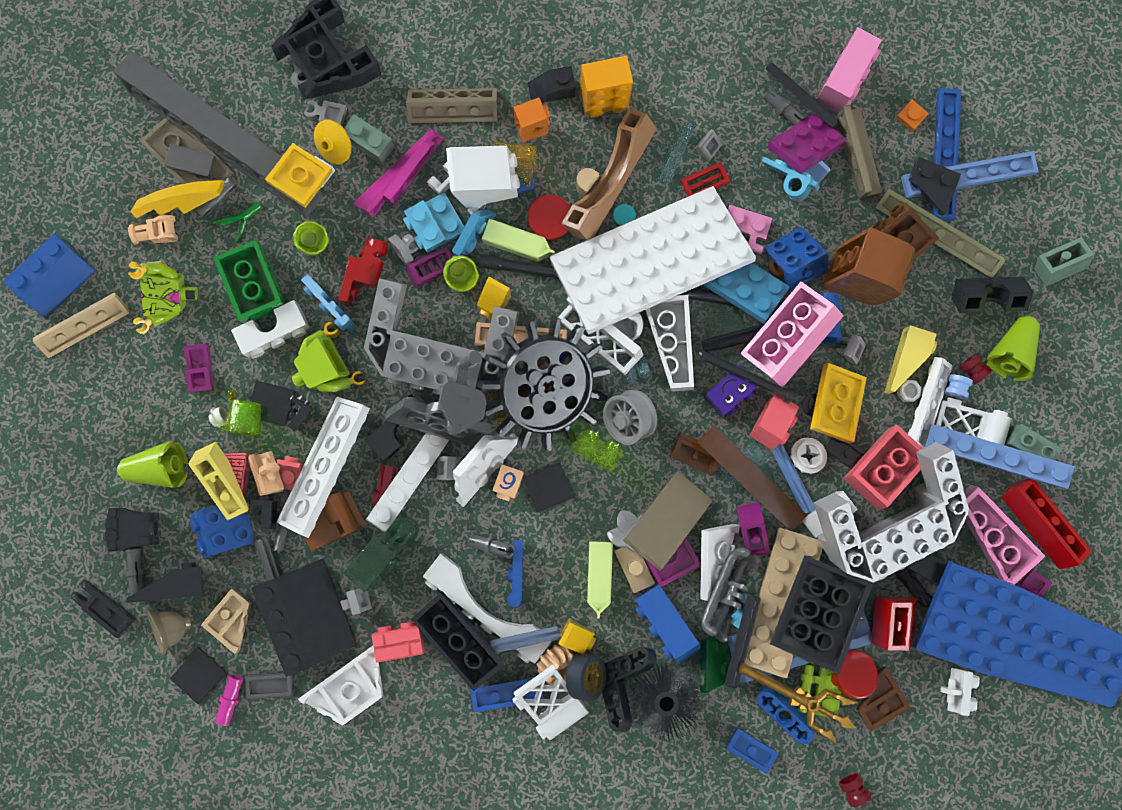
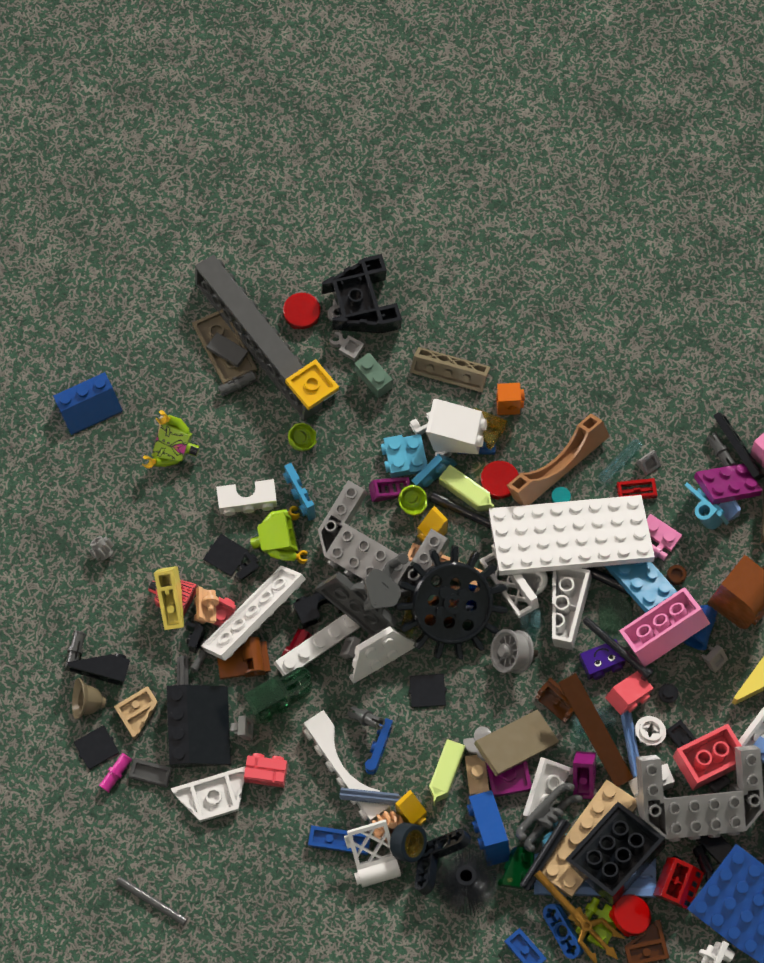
camera: 25 degrees right, 15 degrees down
(81, 325) = (99, 448): tan plate -> none
(103, 610) = (41, 672): black hinge -> none
(123, 443) = (101, 548): none -> light grey gear
(130, 529) = (86, 614): black piece -> none
(156, 230) = (183, 394): light nougat connector -> none
(156, 466) = (120, 572): lime cone -> none
(183, 196) = (213, 374): yellow slope -> none
(199, 367) = (178, 509): magenta slope -> none
(218, 416) = (182, 552): plate -> none
(218, 534) = (152, 639): blue bracket -> none
(242, 417) = (201, 557): clear neon green hat -> none
(245, 215) = (255, 404): green plant -> none
(250, 281) = (243, 455): green brick -> none
(261, 88) = (301, 311): none -> red tile
(332, 141) = (344, 368): yellow dish -> none
(363, 271) = (335, 474): red plate -> none
(399, 175) = (388, 411): dark pink wedge -> none
(402, 247) = (372, 466): light grey tile -> none
(458, 641) = (316, 780): black slope -> none
(508, 482) = (396, 674): light nougat brick -> none
(553, 85) = (536, 378): black slope -> none
(586, 180) = (539, 459): tan brick -> none
(597, 451) = (476, 672): clear neon green brick -> none
(606, 86) = (576, 391): light orange brick -> none
(730, 338) = (613, 618): black axle -> none
(798, 257) = (693, 572): blue bracket -> none
(838, 403) = (687, 695): yellow plate -> none
(909, 391) = (751, 706): white tile -> none

